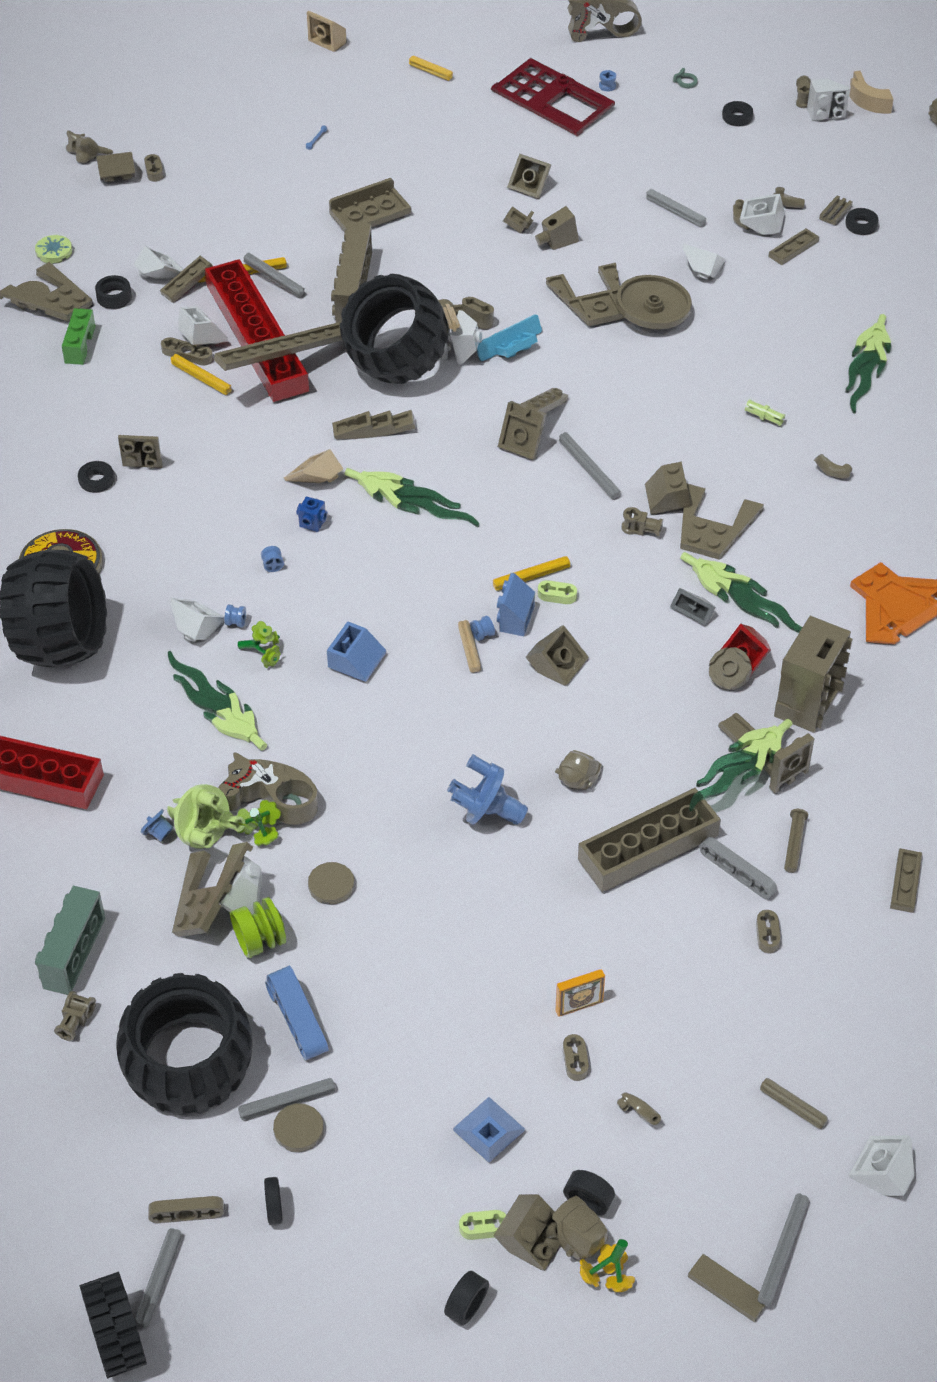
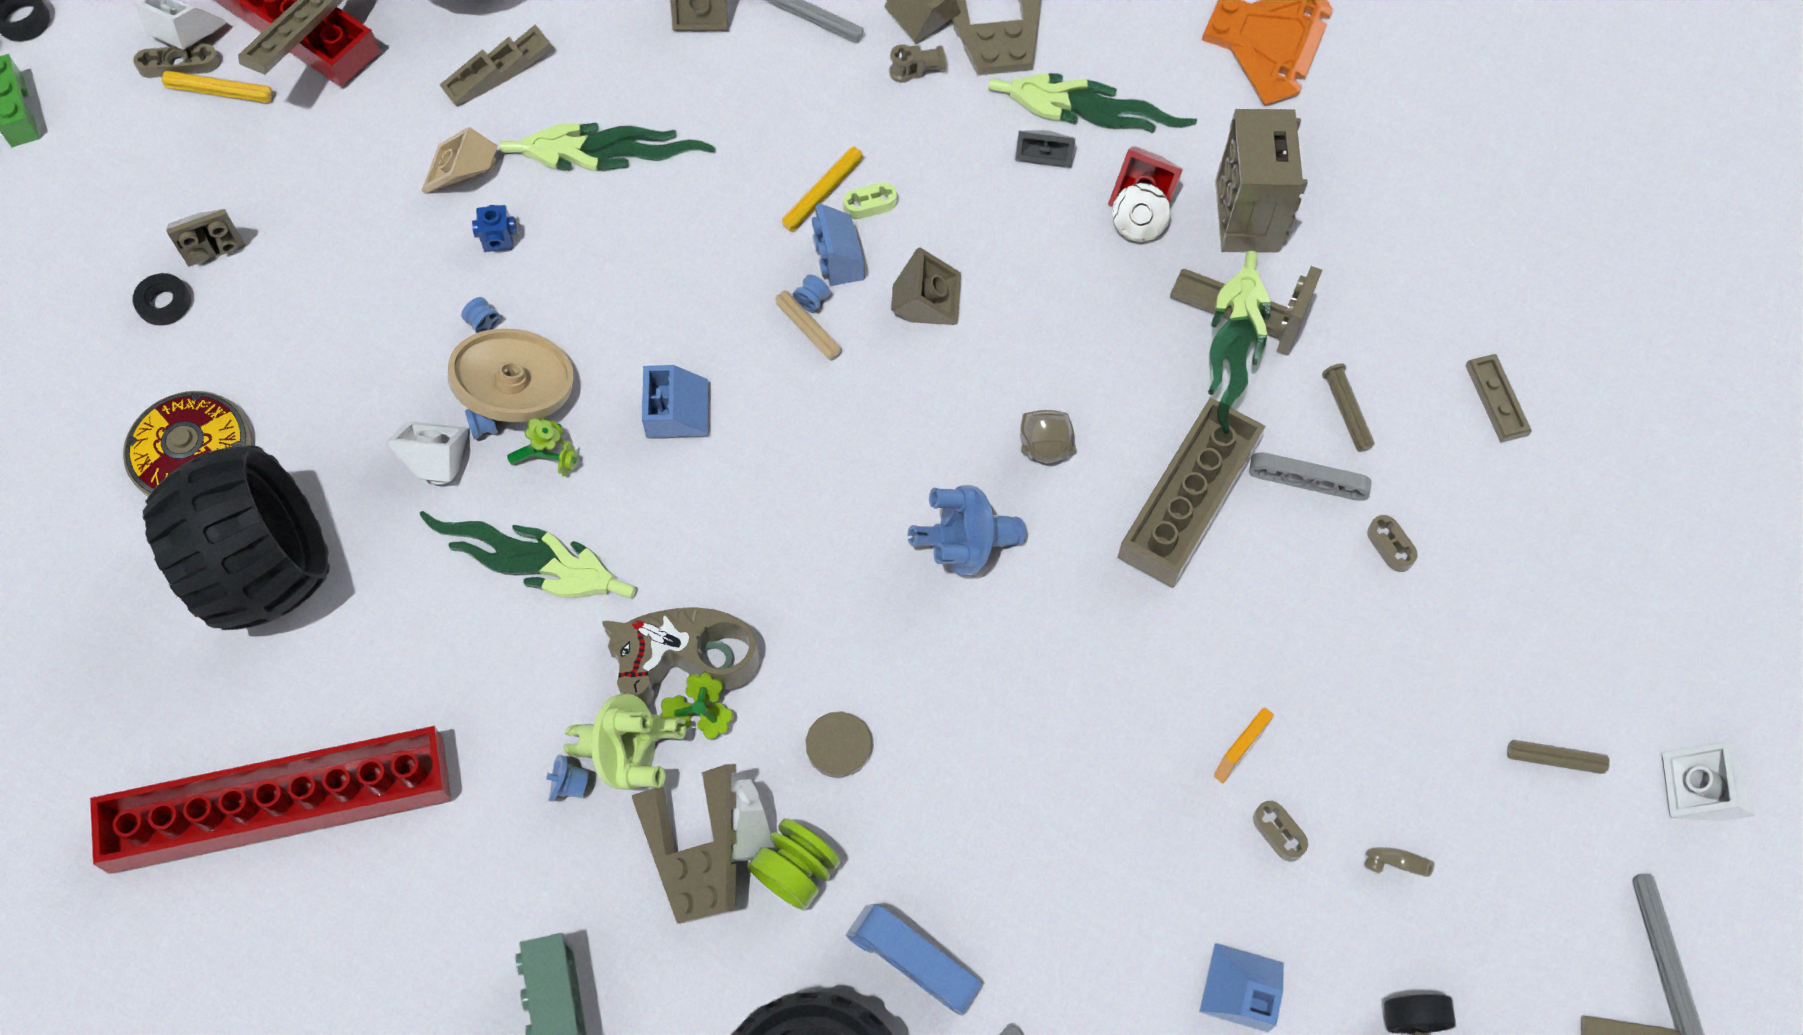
camera: 30 degrees left, 15 degrees up
(267, 595) = (510, 375): none -> tan dish

